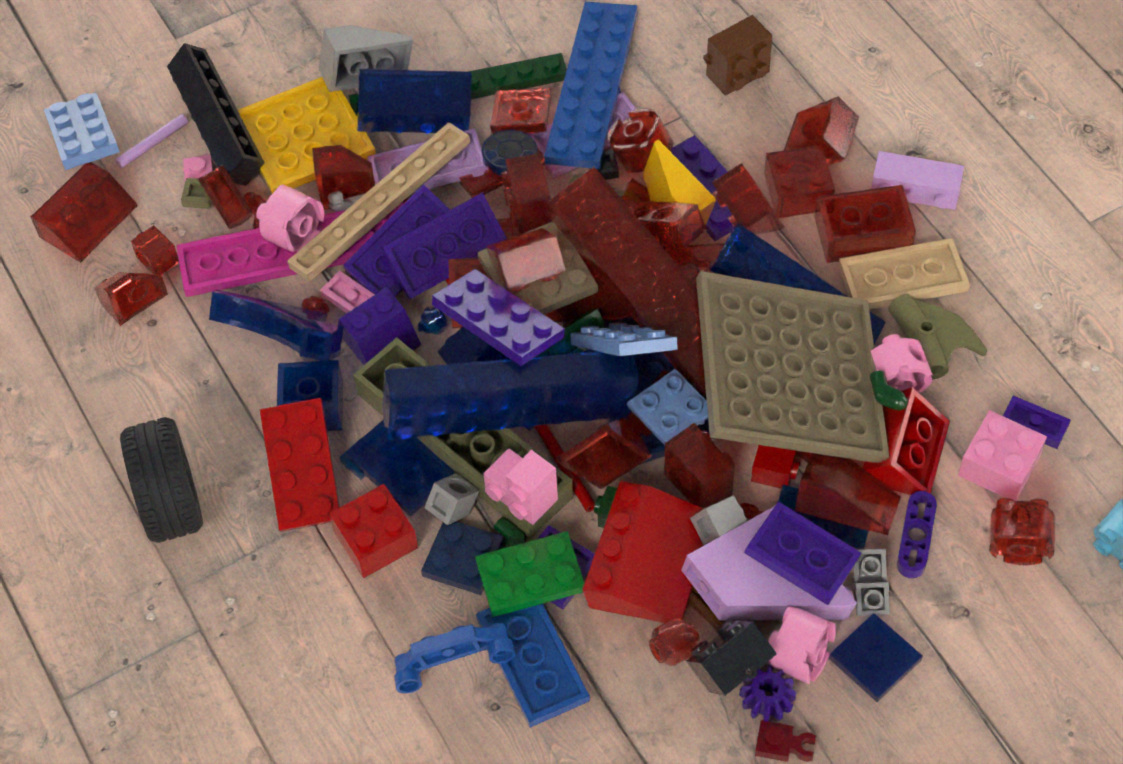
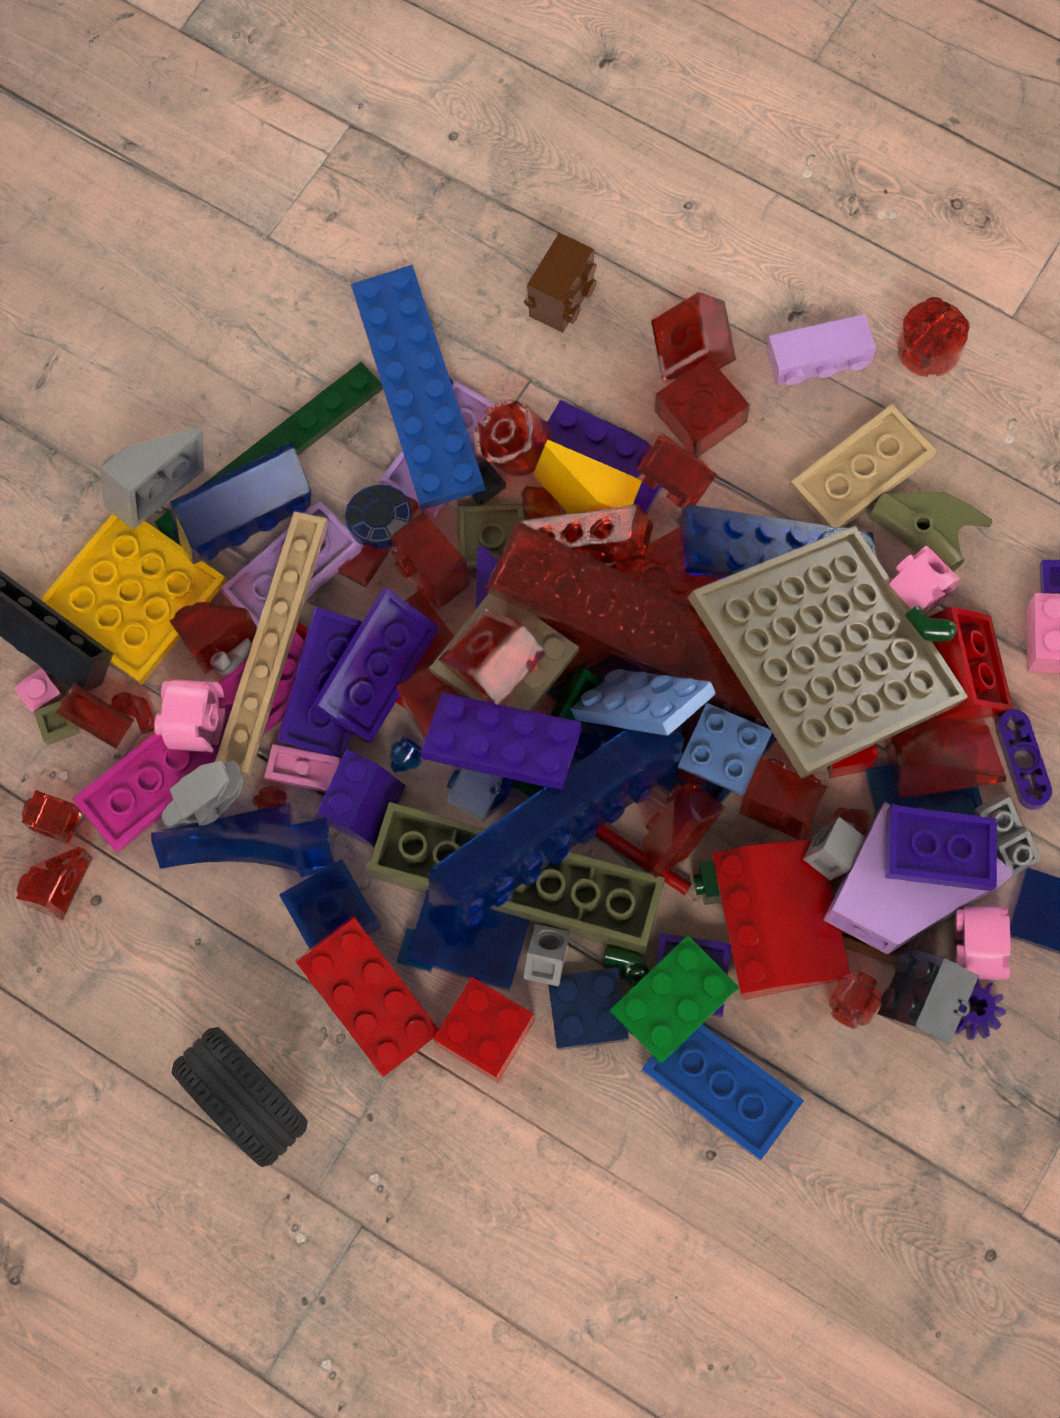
camera: 25 degrees left, 15 degrees up
(267, 275) = (203, 794): none -> light grey hinge
(449, 647) = (651, 1112): blue plate -> none
(521, 110) = (359, 456): clear red plate -> none
(522, 484) = (624, 916): bright pink brick -> none
(776, 742) = (1007, 1052): dark red plate -> none
(863, 222) = (796, 429): clear red brick -> none
(1011, 205) = (932, 337): none -> clear red brick

